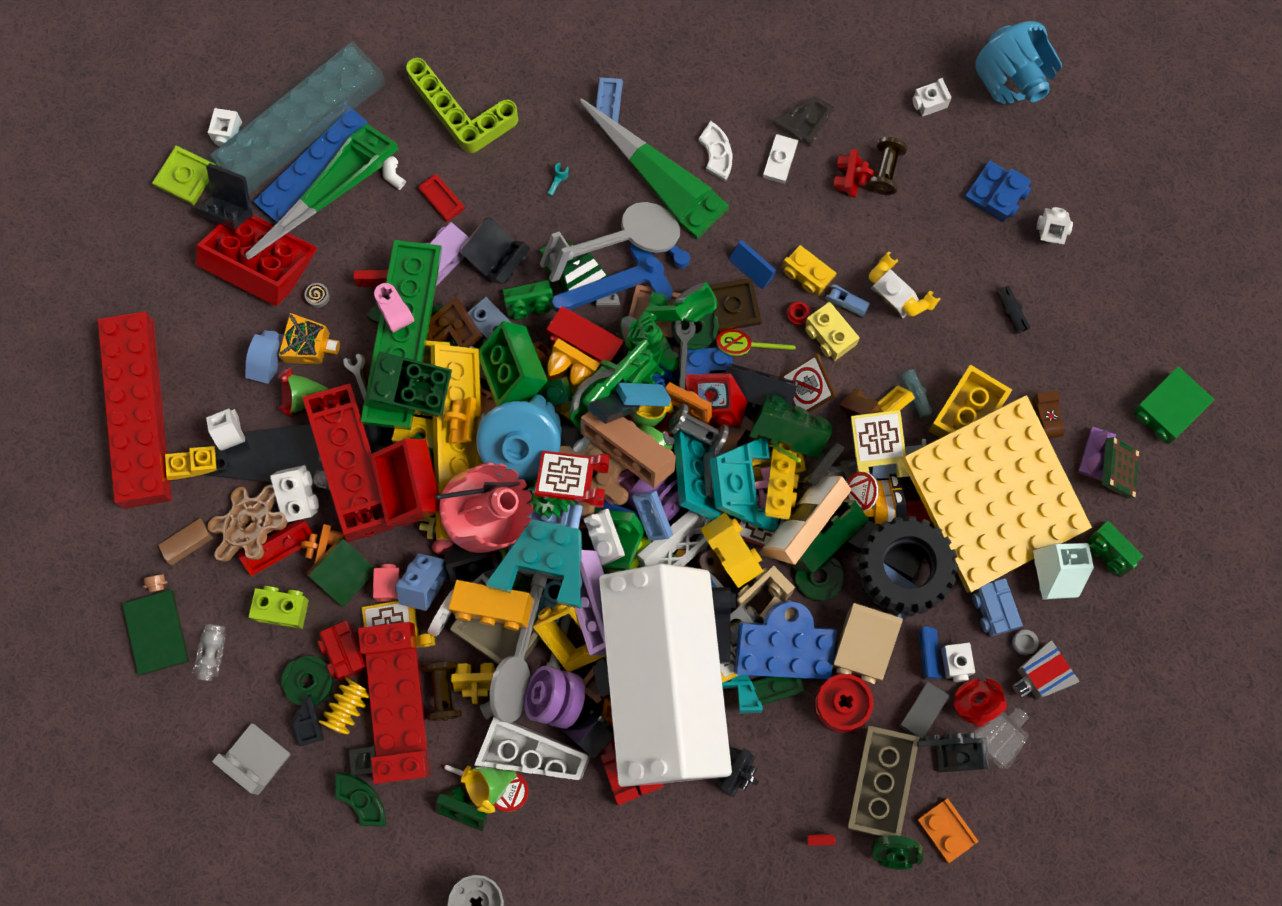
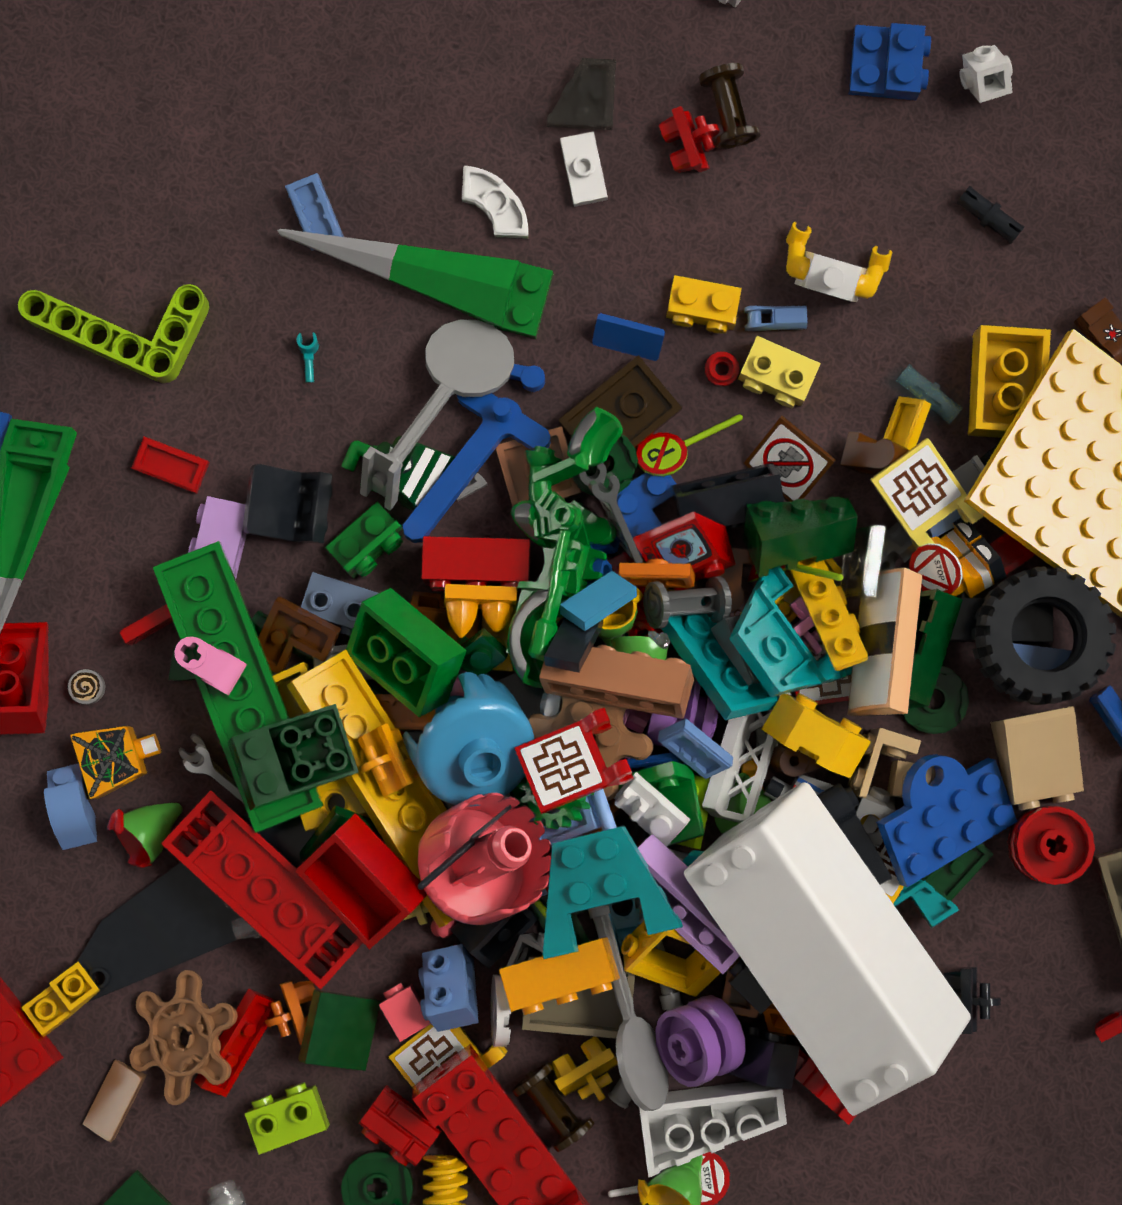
camera: 30 degrees left, 10 degrees up
(155, 583) = (109, 1174): nougat plate -> none
(225, 429) = (80, 932): white brick -> none
(294, 493) = (220, 965): white brick -> none
(389, 173) = (83, 470): white arm -> none

